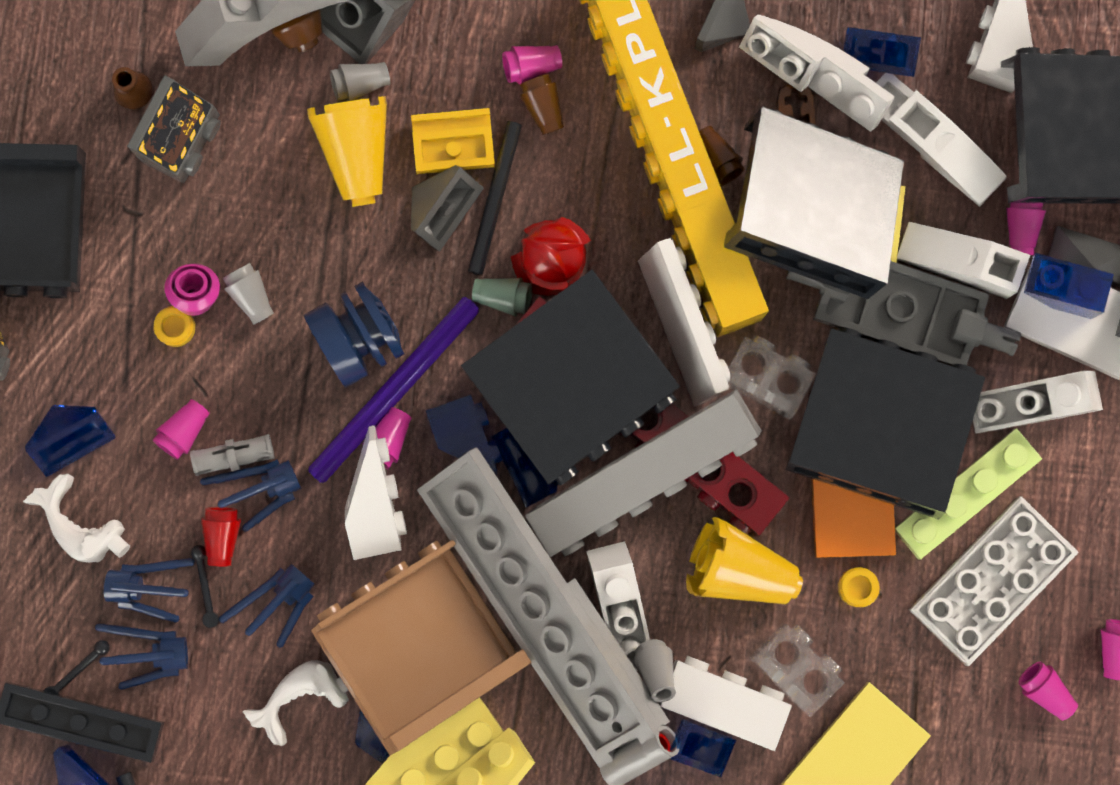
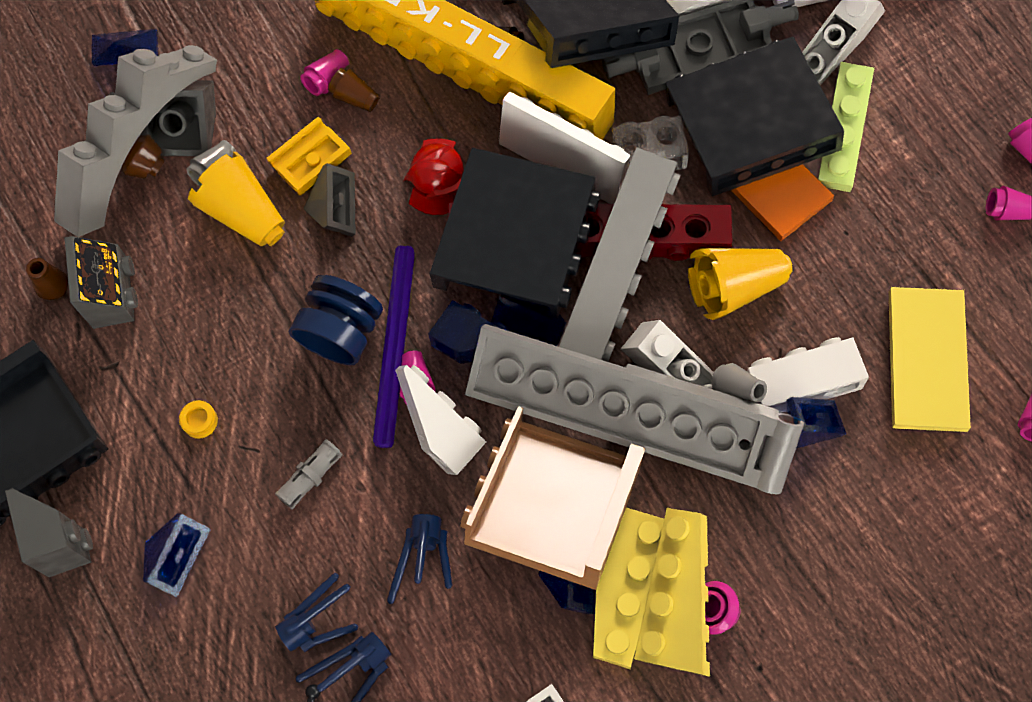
camera: 25 degrees left, 15 degrees down
(79, 543) = (239, 623): white animal -> none
(181, 429) = (256, 485): dark pink cone -> none
(192, 288) = (193, 379): dark pink cone -> none
(211, 618) = (381, 606): black hinge -> none
(220, 534) = (342, 536): red cone -> none
(249, 293) = (236, 354): light grey cone -> none
(278, 481) = (355, 466): dark blue plant -> none
(307, 678) = (489, 591): white animal -> none
(494, 198) = (368, 174): black piece -> none
(503, 294) = (422, 226): sand green cone -> none
(791, 676) = (834, 323): clear brick -> none
(858, 587) = (827, 236): yellow tile -> none
(993, 581) = (912, 167): white tile -> none

